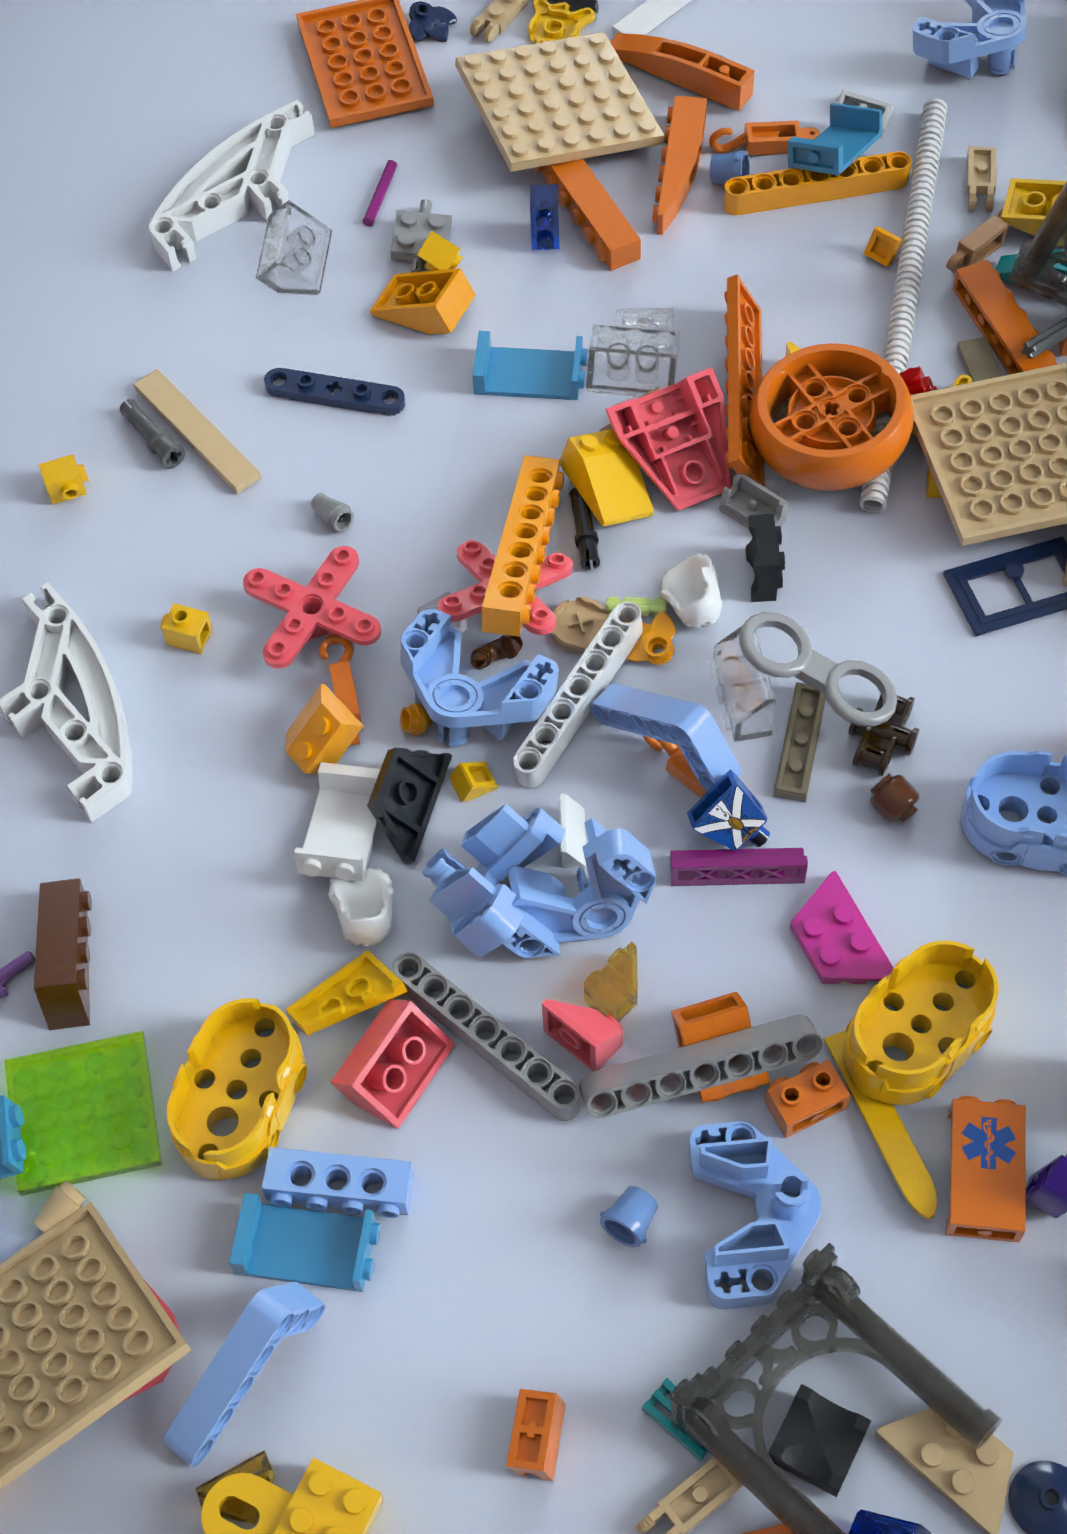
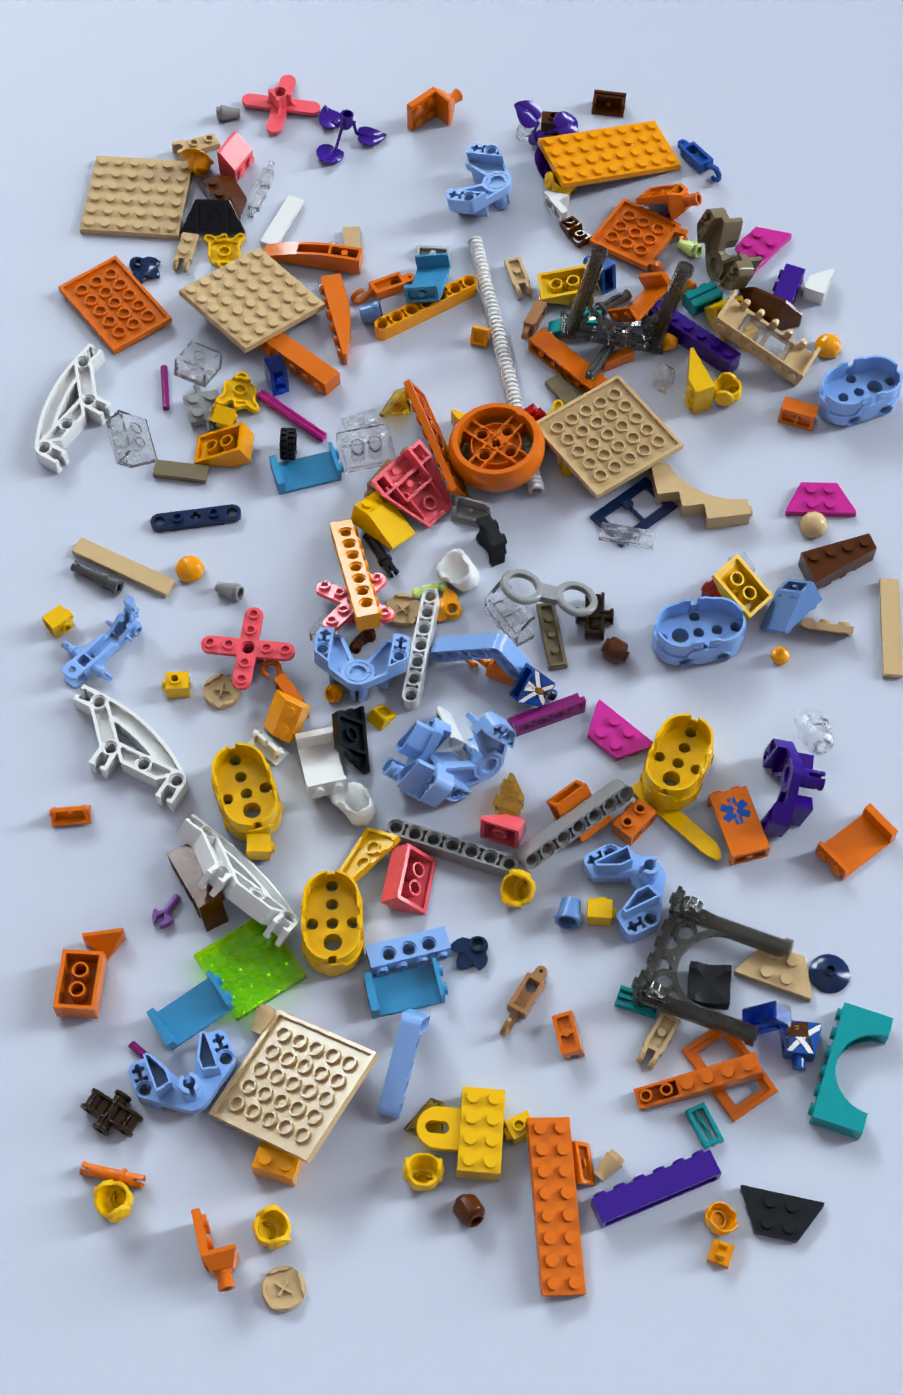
camera: 25 degrees left, 0 degrees up
(104, 537) = (101, 648): none -> light blue piece
(125, 966) = (238, 878): none -> white piece
(180, 806) = (257, 779): none -> yellow piece
(184, 922) = (259, 846): none -> yellow brick
(243, 662) = (220, 692): none -> tan tile
(276, 769) = (270, 749): none -> white hinge
(289, 462) = (189, 569): none -> light orange hair
(345, 318) = (181, 471): none -> dark tan tile
(435, 1225) = (468, 954): none -> dark blue plate
(438, 169) = (198, 363): none -> clear brick
(481, 230) = (240, 393): none -> yellow tile
(488, 1341) = (522, 1000): none -> medium nougat piece
(516, 320) = (288, 444): none -> black tyre
(545, 285) = (291, 415): none -> dark pink axle
(560, 1142) = (517, 888): none -> yellow hair
(684, 1233) = (600, 911): none -> yellow brick
(707, 315) = (396, 405): none -> clear yellow slope
(752, 55) = (352, 236): none -> tan tile
(992, 620) = (627, 535): none -> clear tile

